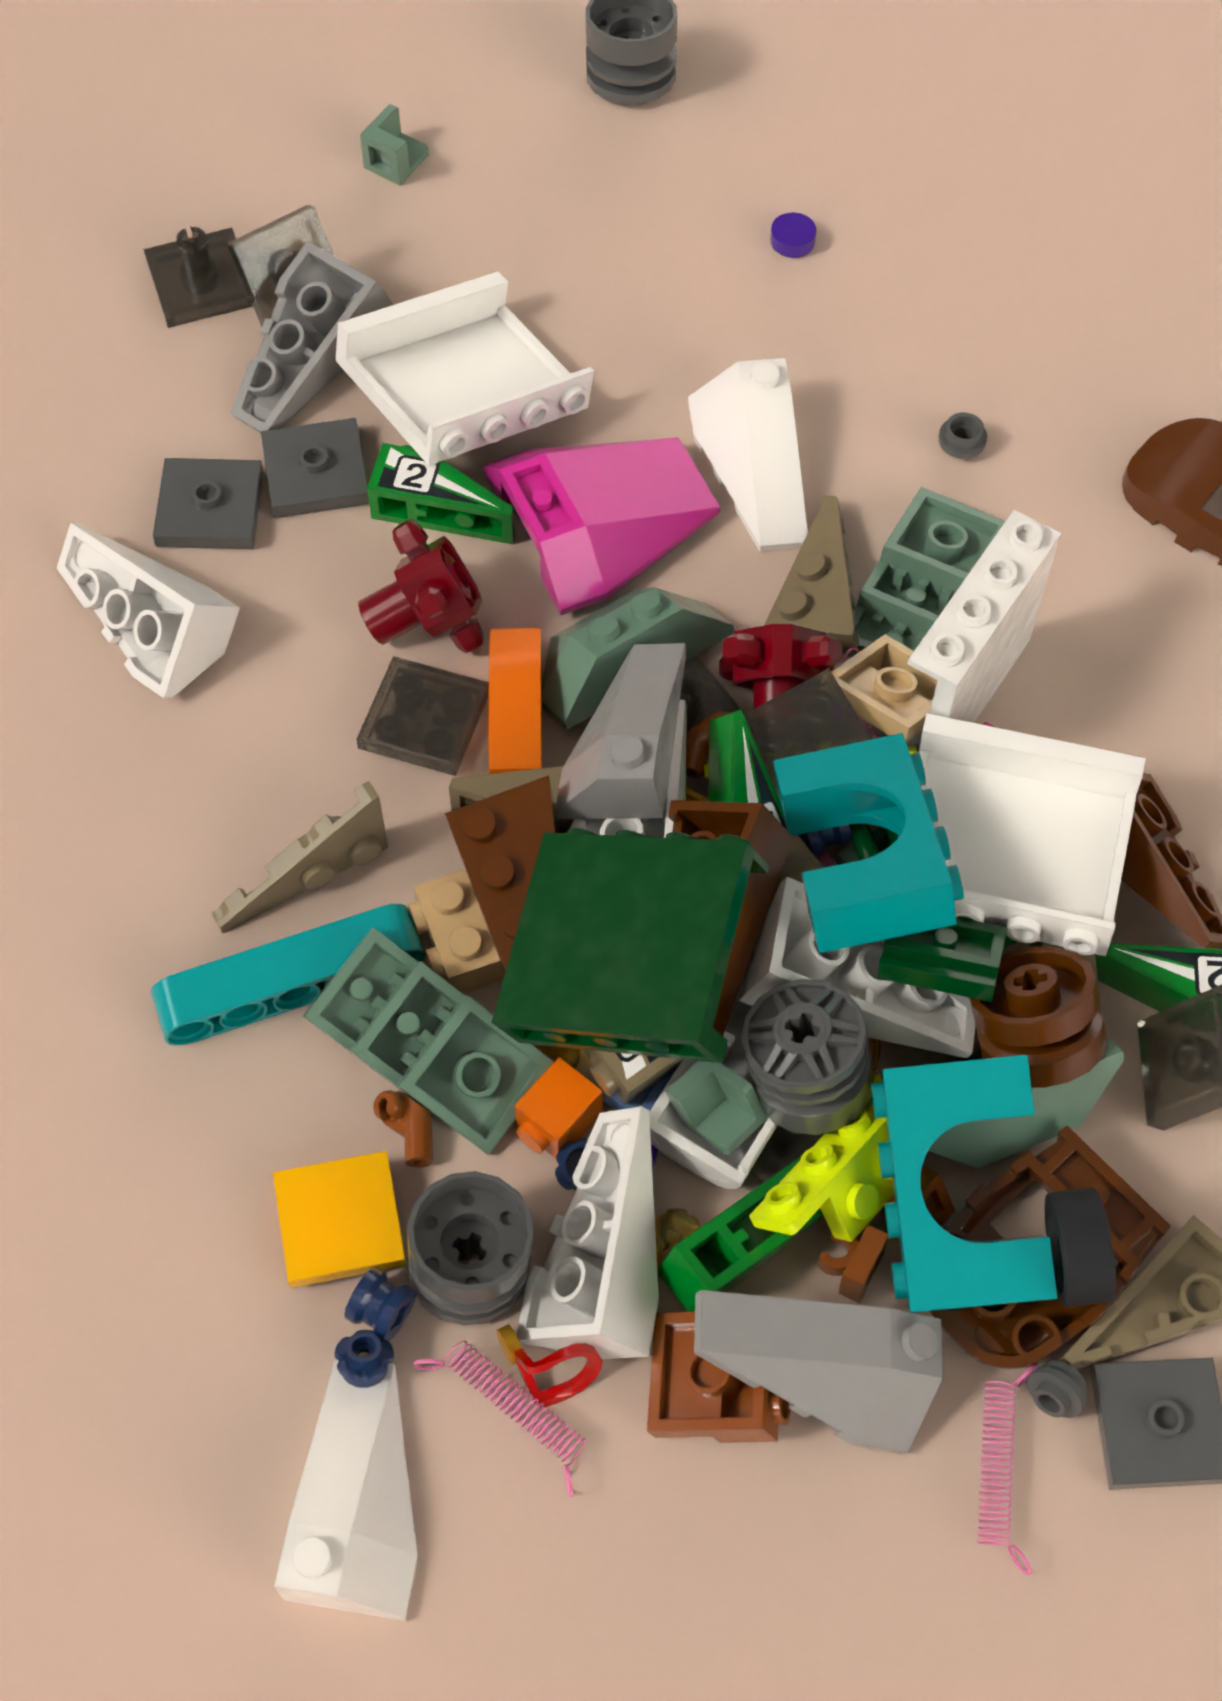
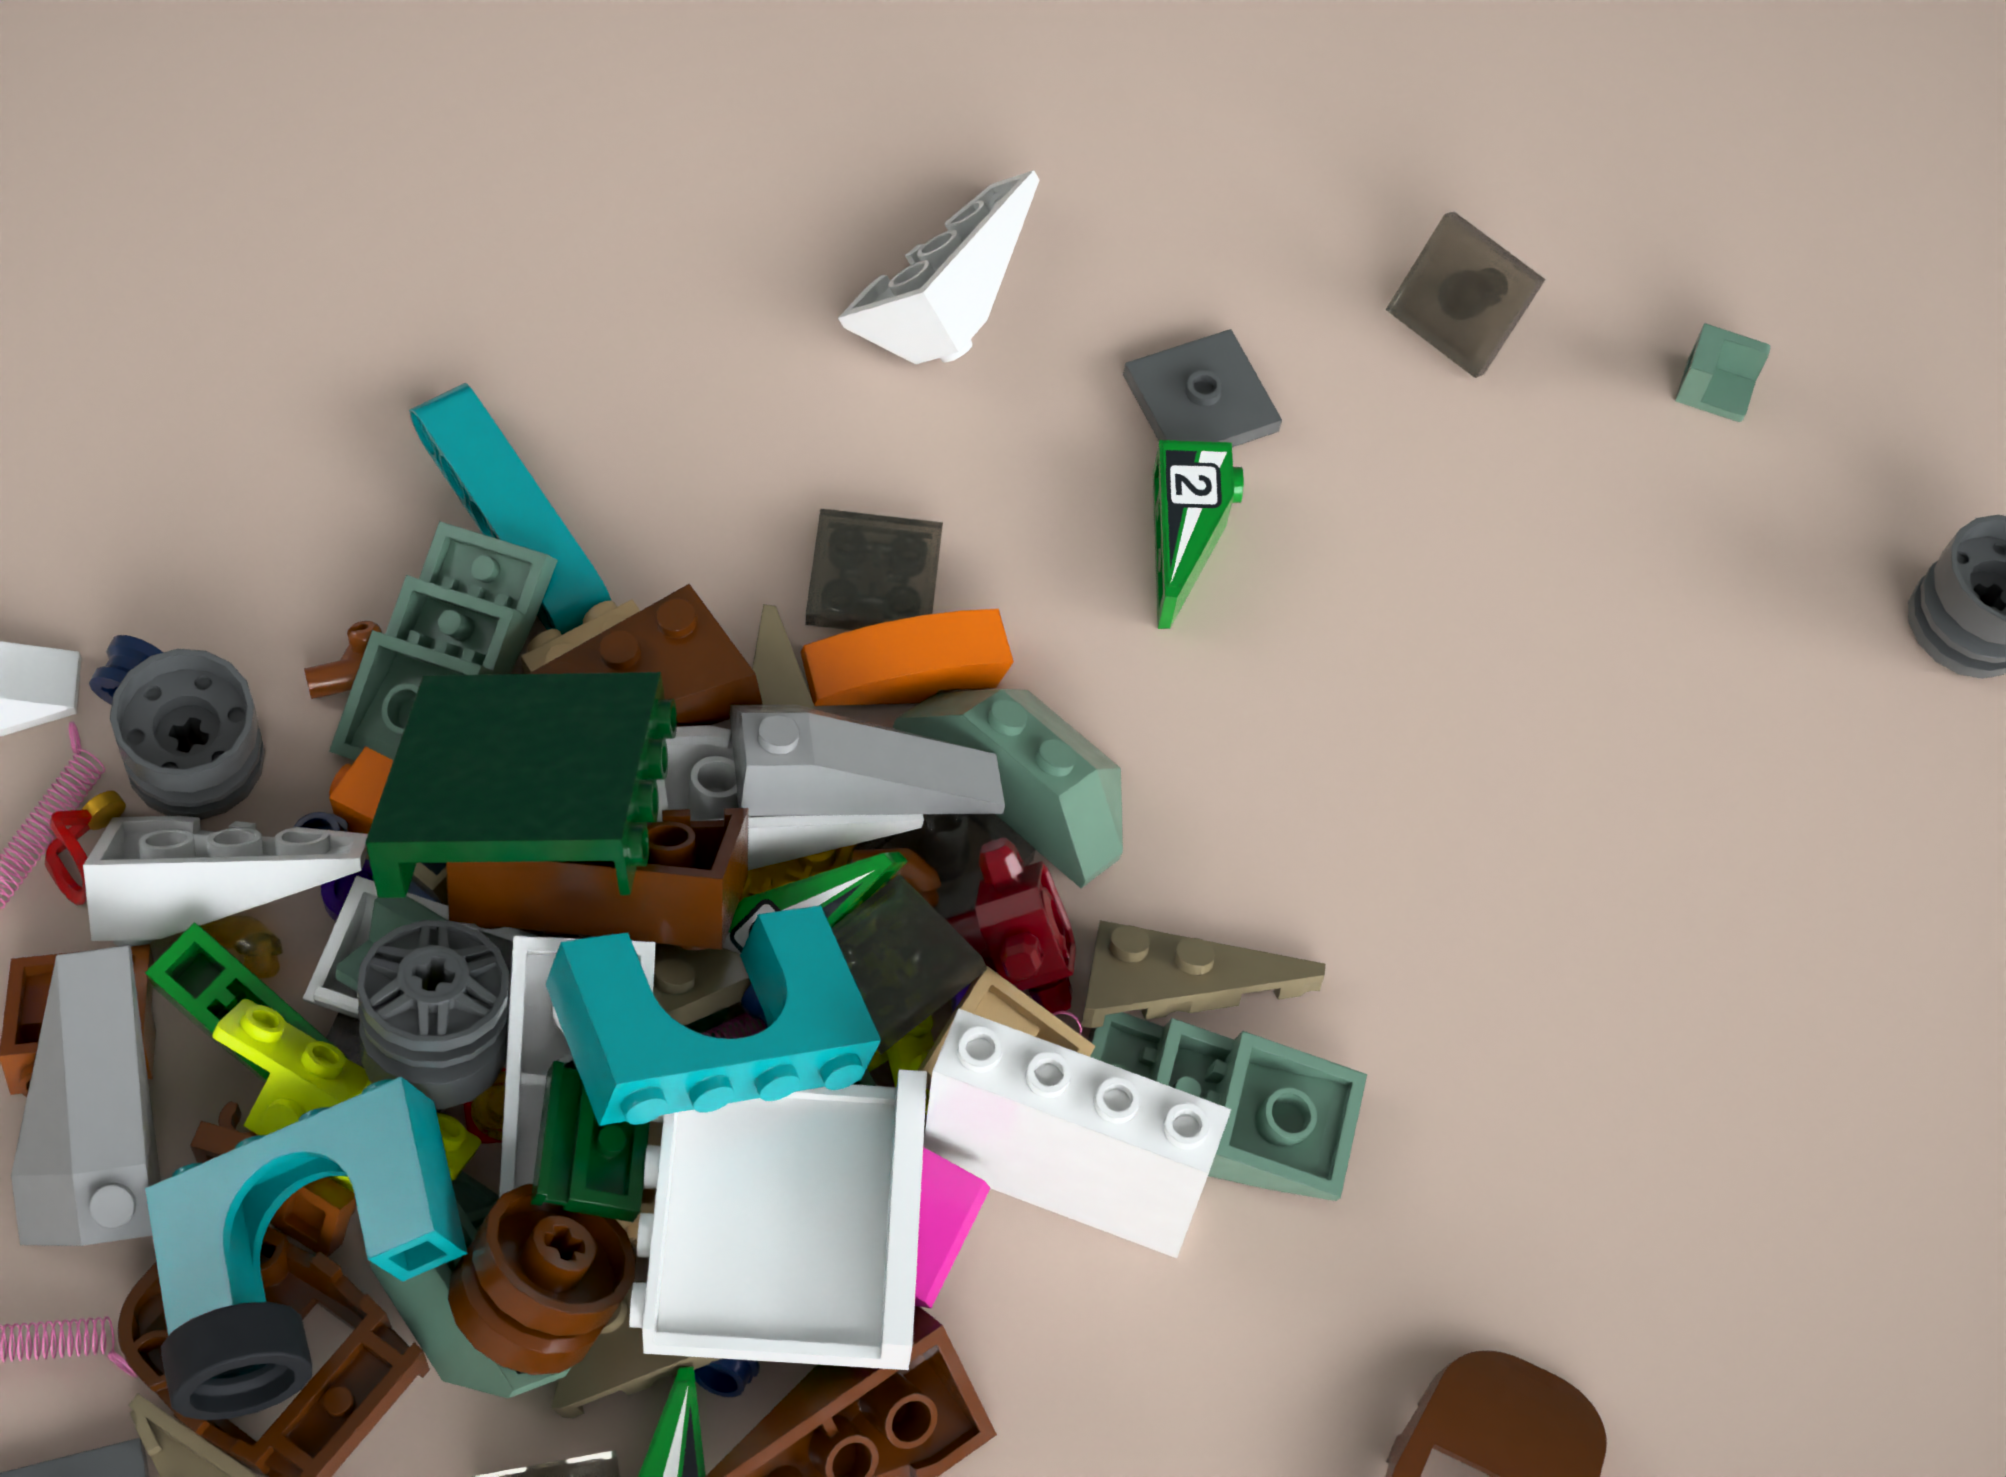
camera: 70 degrees right, 0 degrees up
(196, 277) = (1415, 207): clear smoke tile -> none
(208, 503) = (1118, 303): dark grey plate -> none
(302, 336) = (1398, 352): light grey wedge -> none
(313, 859) = (656, 500): dark tan wing -> none
(338, 1219) = (230, 610): yellow tile -> none
(368, 1370) = (63, 684): dark blue plate -> none
(429, 591) = (1032, 534): dark red piece -> none
(458, 369) = (1374, 506): white panel -> none
(602, 511) = (1220, 702): dark pink wedge -> none
(751, 440) = (1375, 869): white wedge -> none
(793, 234) = (1759, 864): dark purple tile -> none
(963, 436) = (1487, 1109): dark grey plate -> none
(1058, 1389) = (100, 1396): dark grey plate -> none

